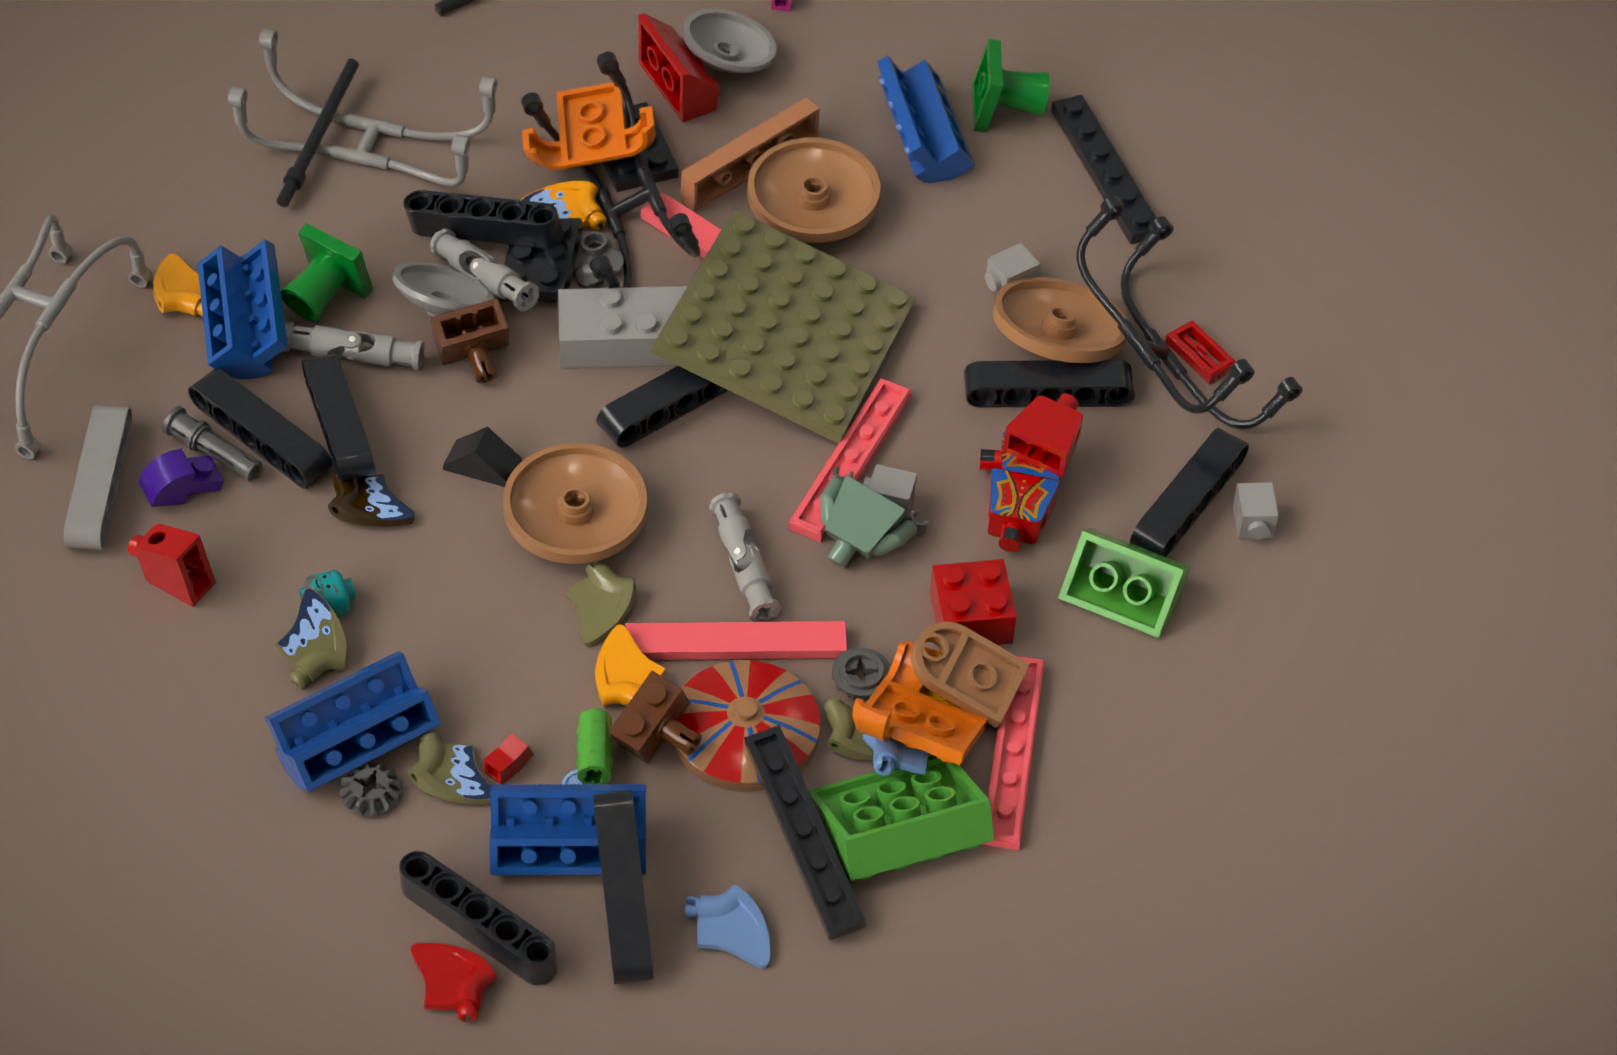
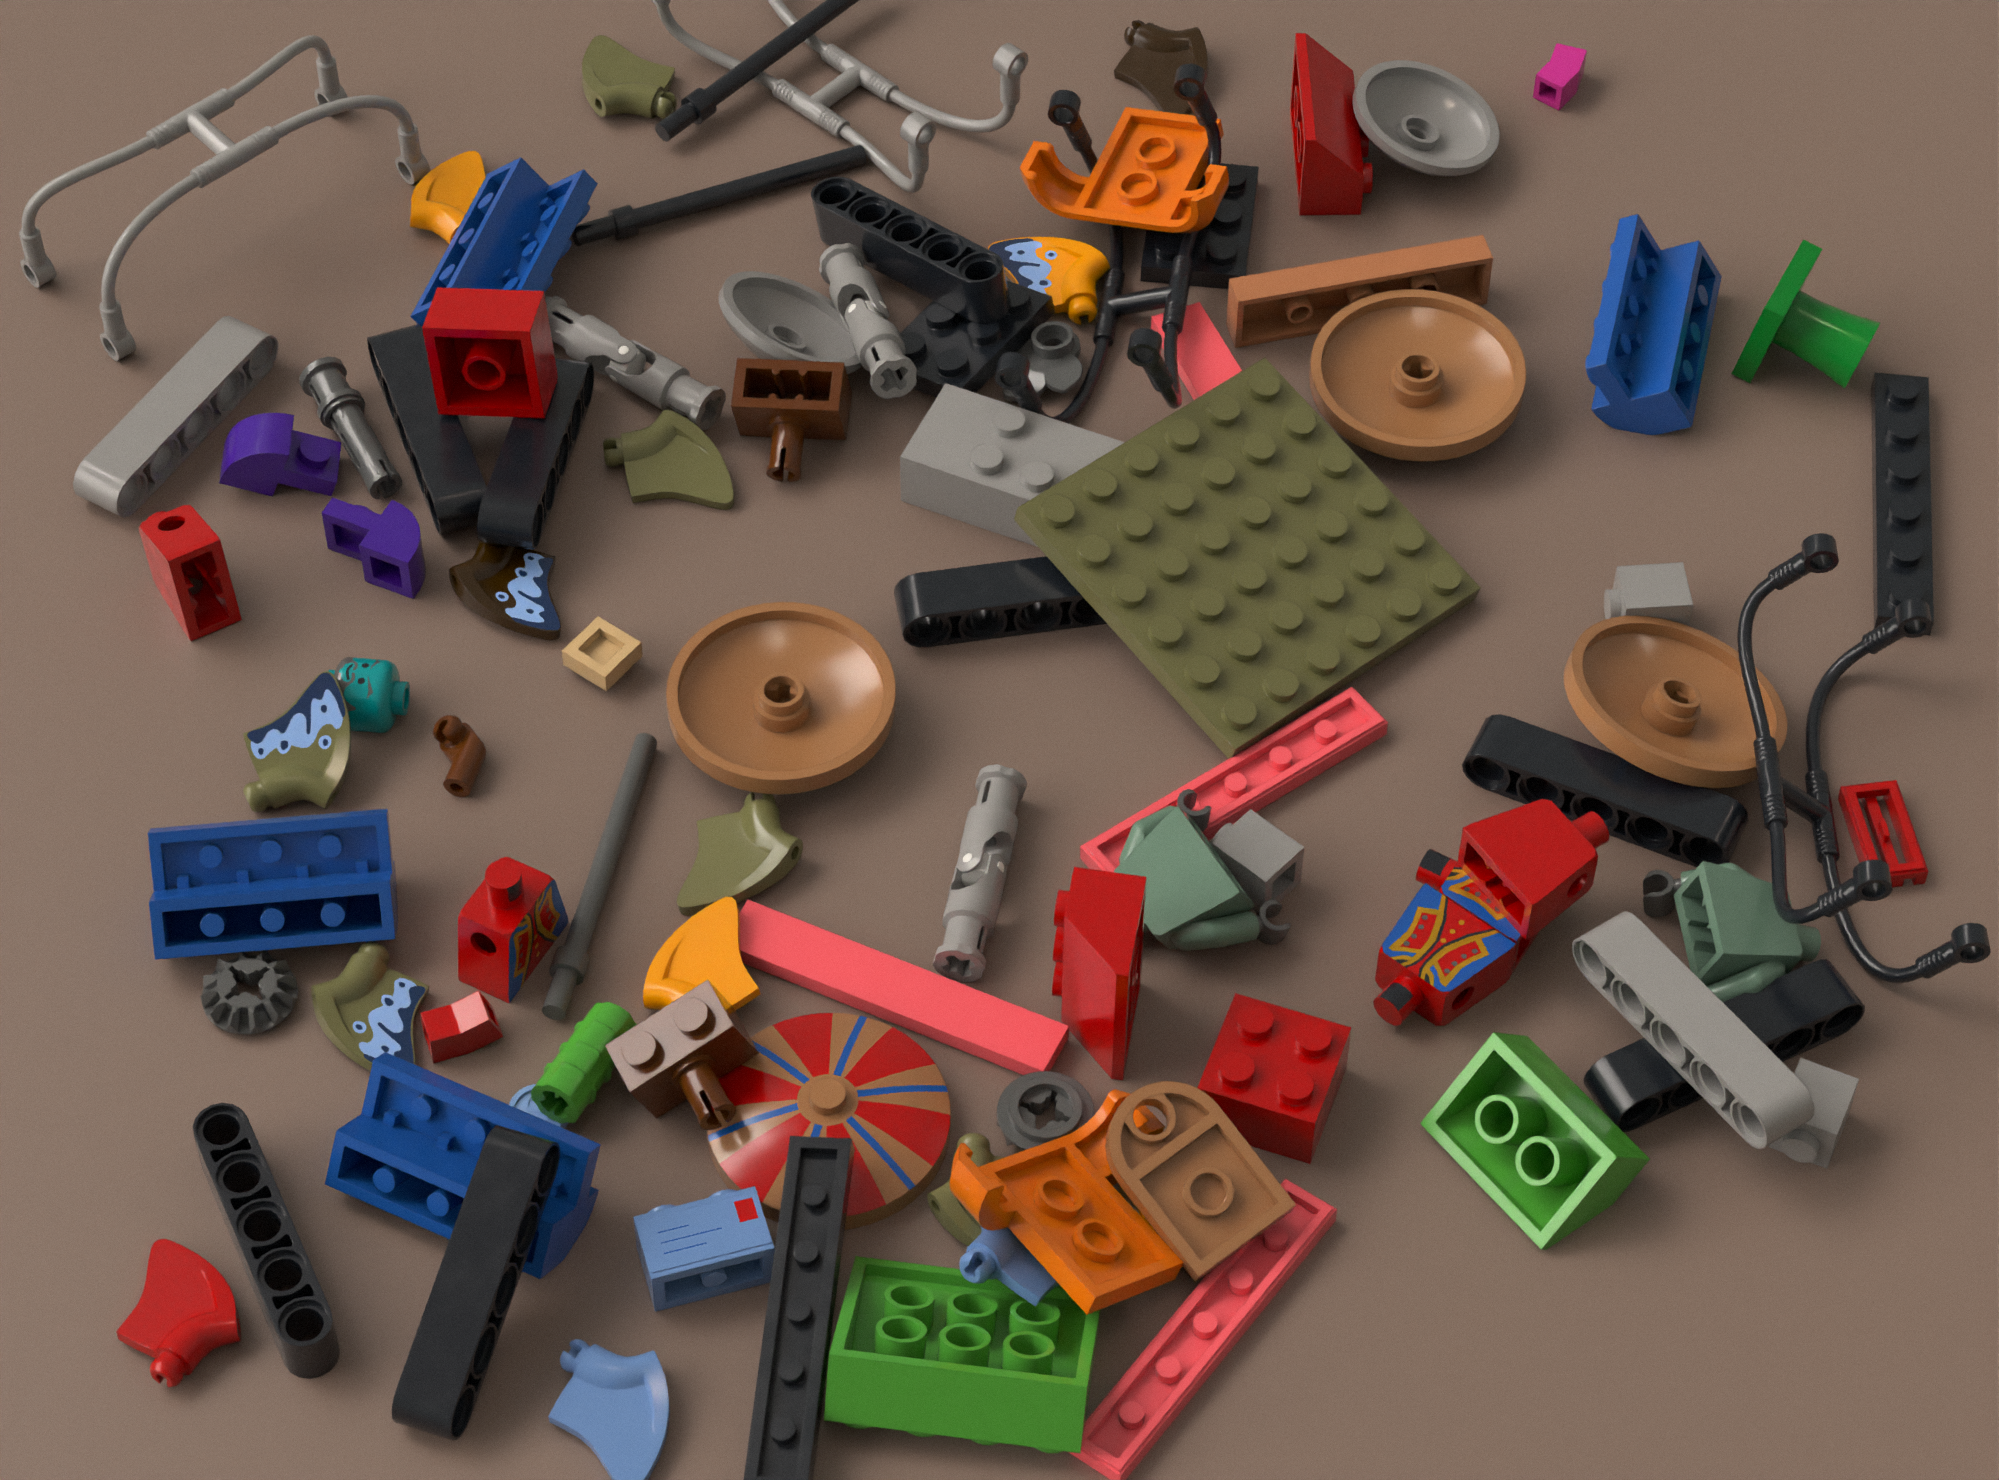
camera: 30 degrees right, 0 degrees up
(236, 180) = (625, 83): none -> olive arm
(283, 503) = (384, 543): none -> dark purple brick
(290, 366) = (490, 352): none -> red brick
(295, 262) = (626, 222): none -> black bar
(329, 267) = (642, 249): green plant -> none
(405, 605) = (464, 752): none -> reddish brown arm
(416, 394) = (672, 462): none -> olive arm
(450, 518) = (602, 653): none -> tan plate
(482, 457) = (702, 582): black slope -> none
(504, 679) = (508, 927): none -> red torso
(545, 695) = (571, 959): none -> dark grey bar
(554, 60) = (1155, 59): none -> dark brown arm
(726, 819) = (704, 1247): none -> medium blue brick
(857, 578) = (1100, 961): none -> red slope
(1162, 432) = (1730, 927): none -> sand green torso
(1179, 489) = (1693, 1030): none -> light grey beam

